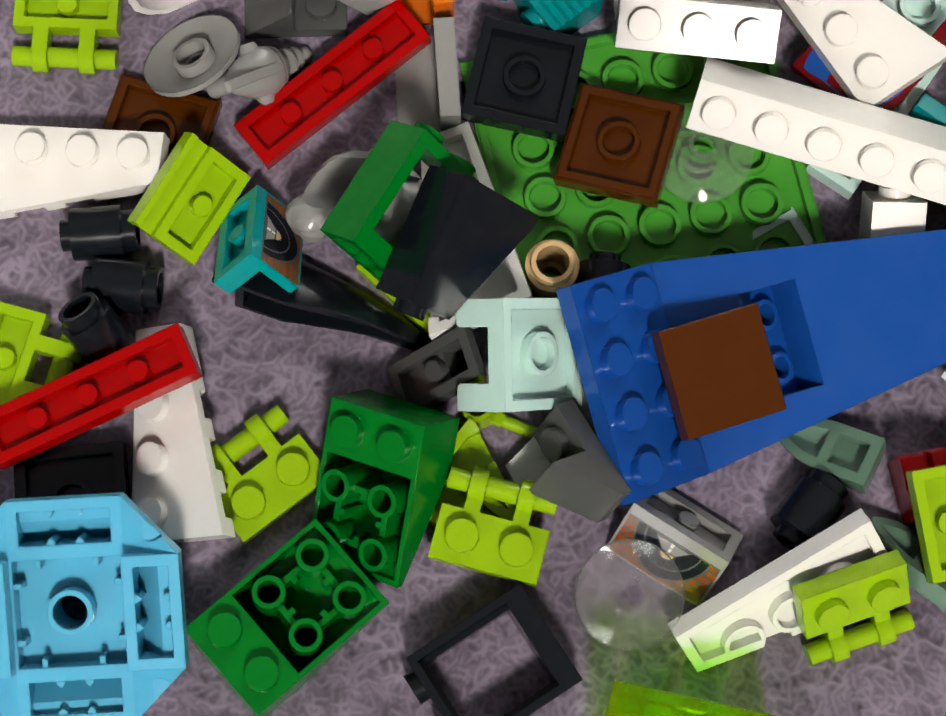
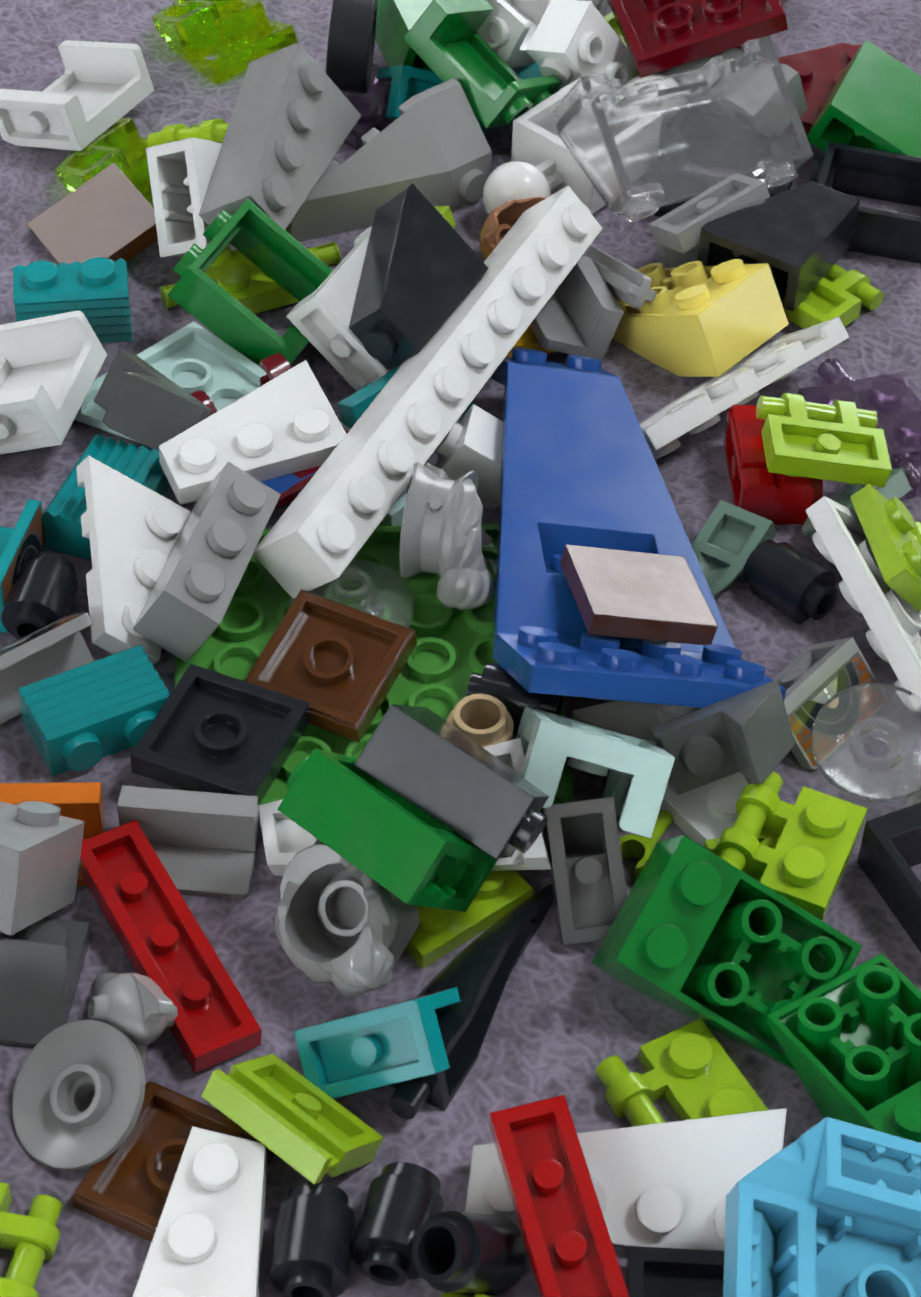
camera: 80 degrees left, 30 degrees down
(766, 206) = (446, 537): none -> light grey piece

